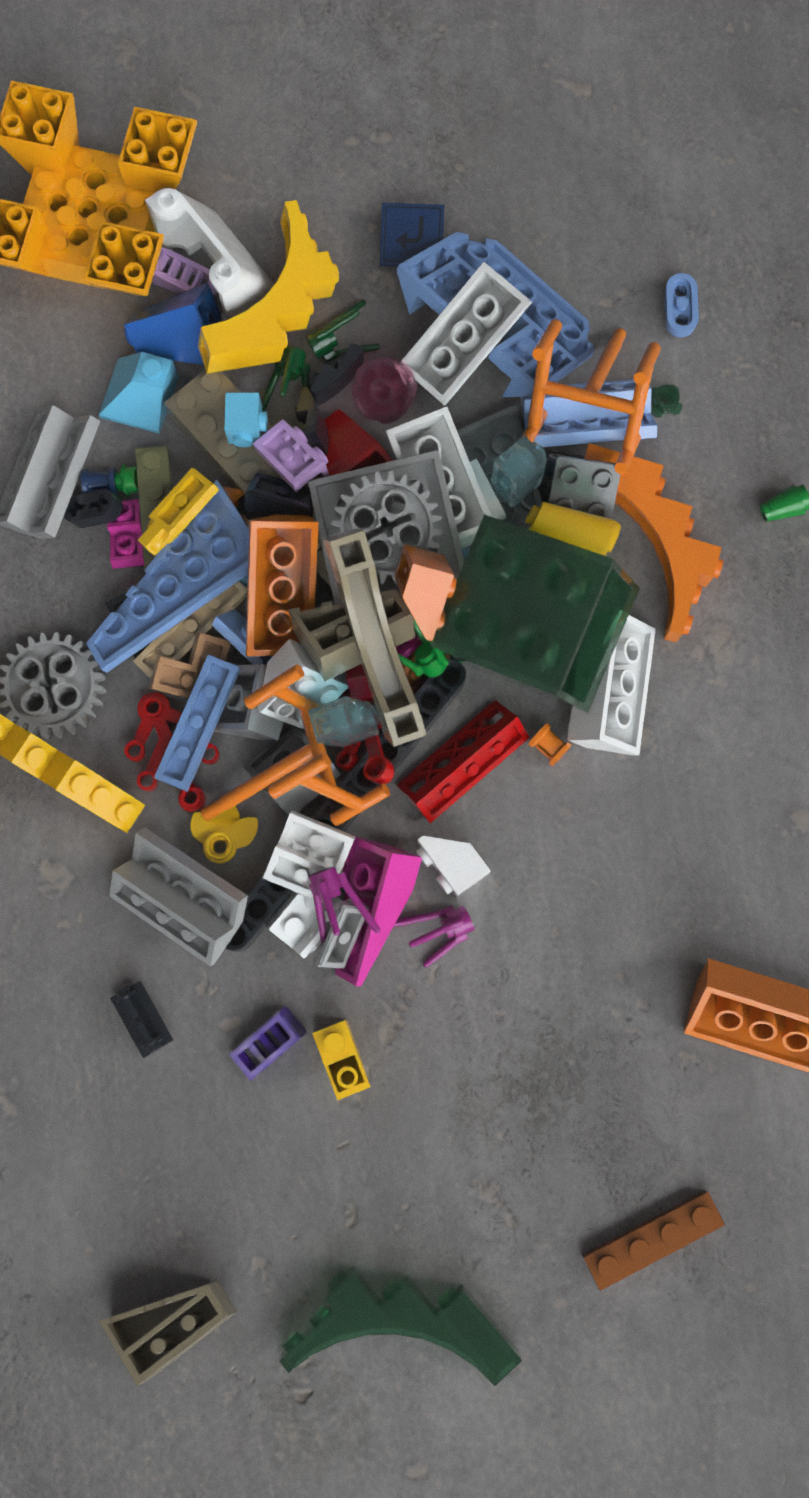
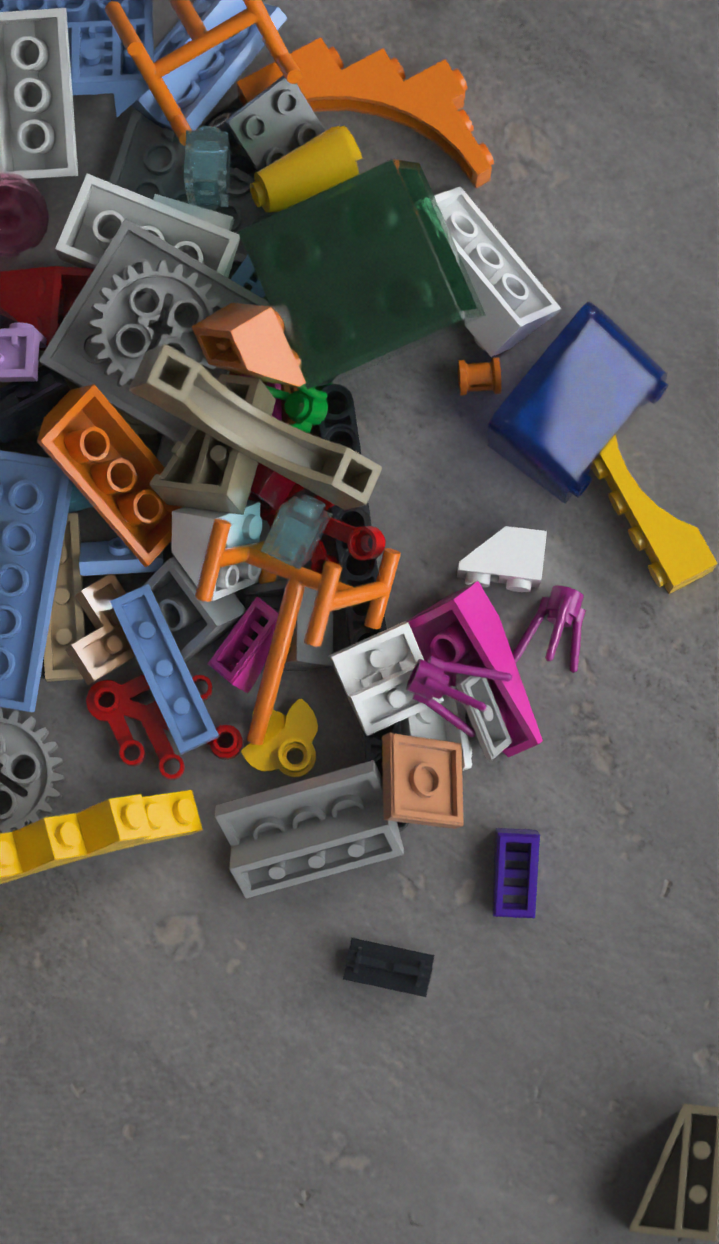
camera: 50 degrees left, 0 degrees up
(249, 759) = (231, 662): none -> dark pink slope
(264, 936) = (422, 781): none -> nougat plate
(341, 1059) = (591, 815): yellow slope -> none
(467, 763) = (428, 463): red fence -> none
(555, 956) = (673, 546): none -> yellow arch
(587, 814) = (574, 402): none -> clear blue windscreen

